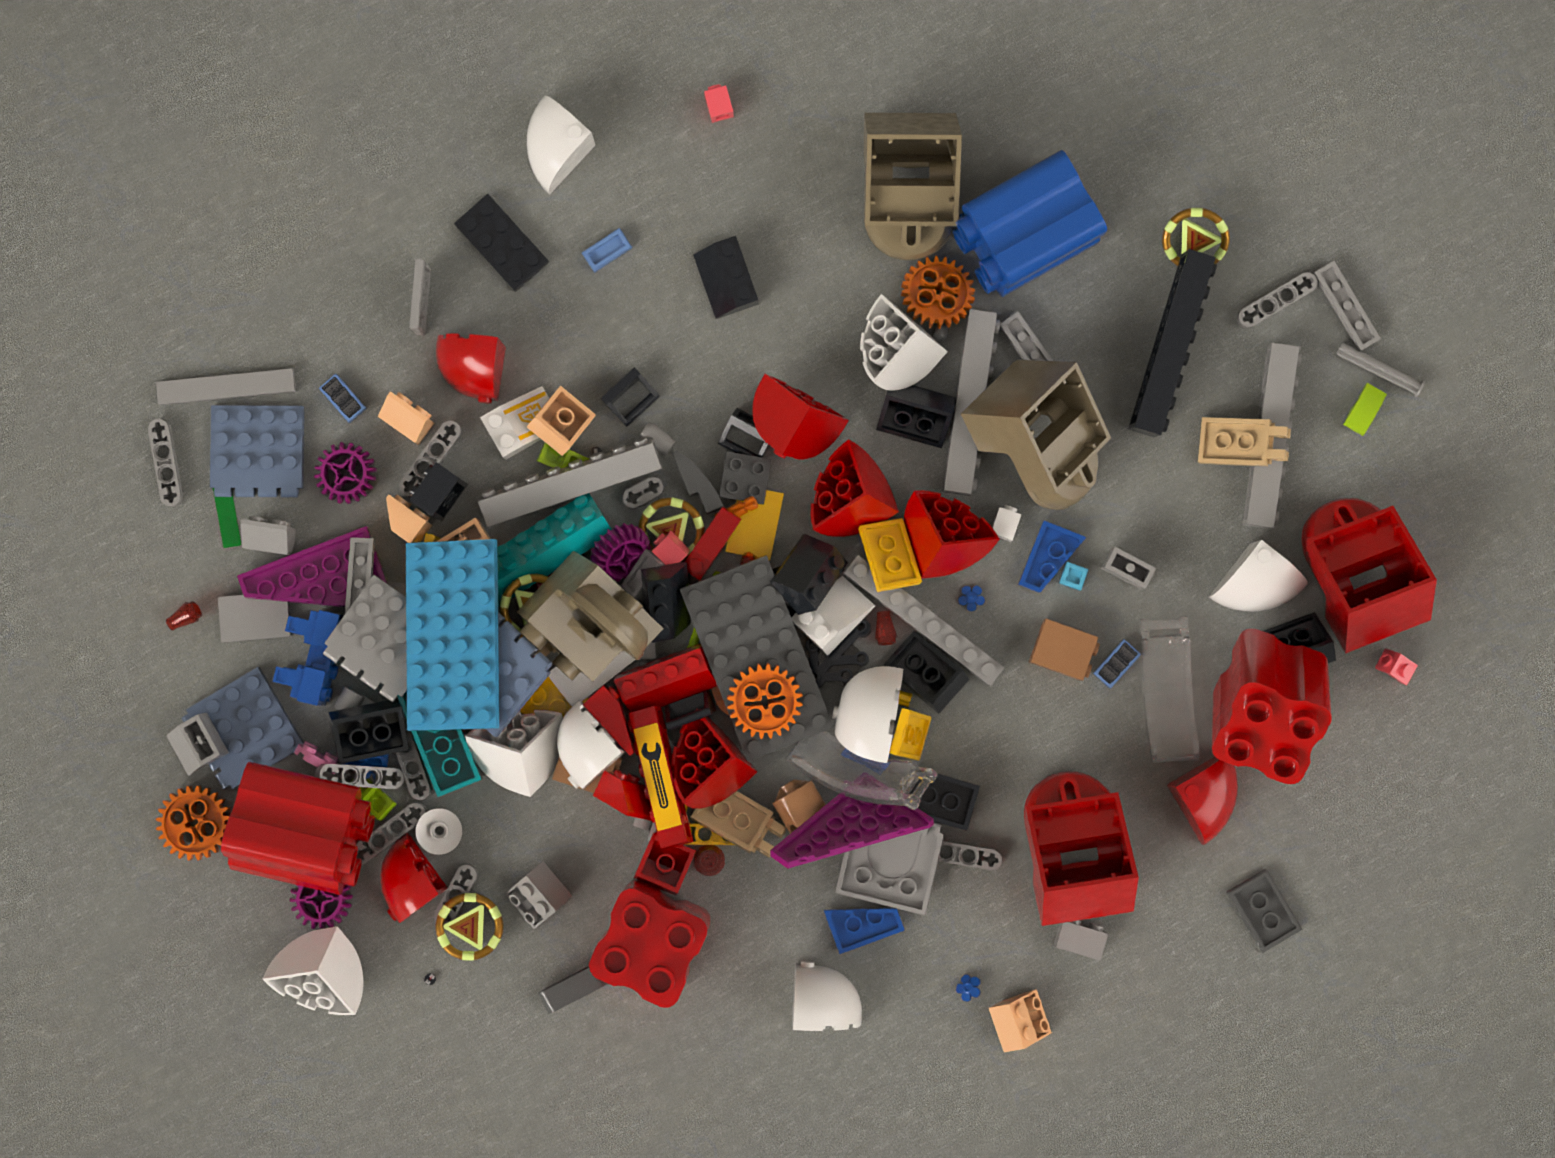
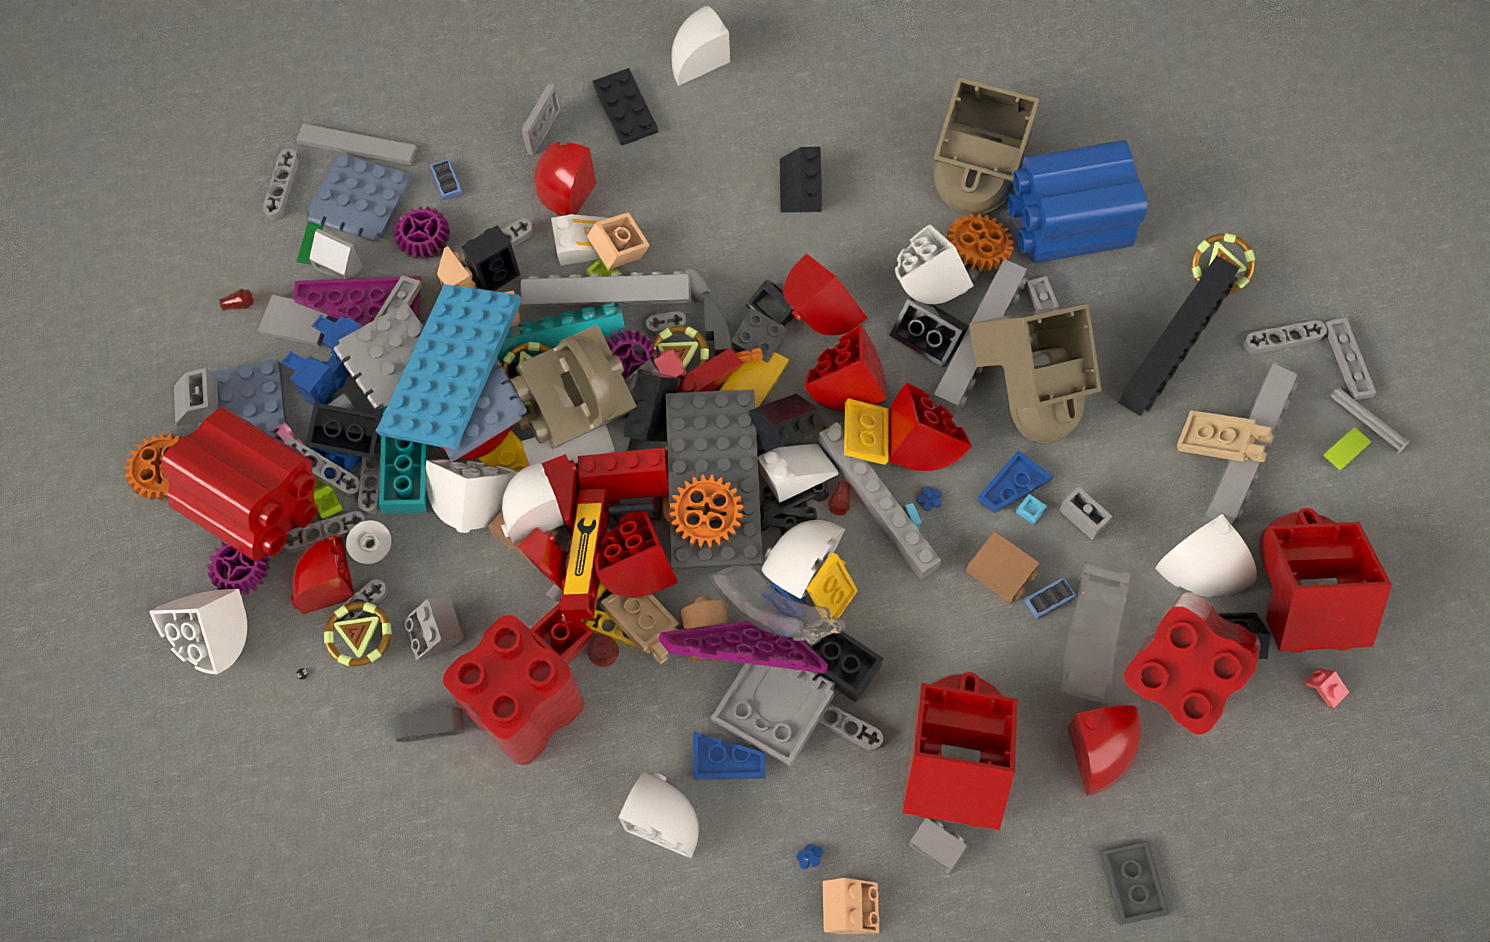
camera: 25 degrees right, 20 degrees down
(409, 421) = (490, 202): light nougat slope -> none
(607, 250) = (709, 135): medium blue tile -> none
(621, 387) = (681, 236): black tile -> none
(718, 103) = (841, 57): coral brick -> none
(928, 671) = (869, 548): black slope -> none
(961, 626) = (912, 513): none -> medium azure tile
(1006, 522) = (982, 442): white brick -> none

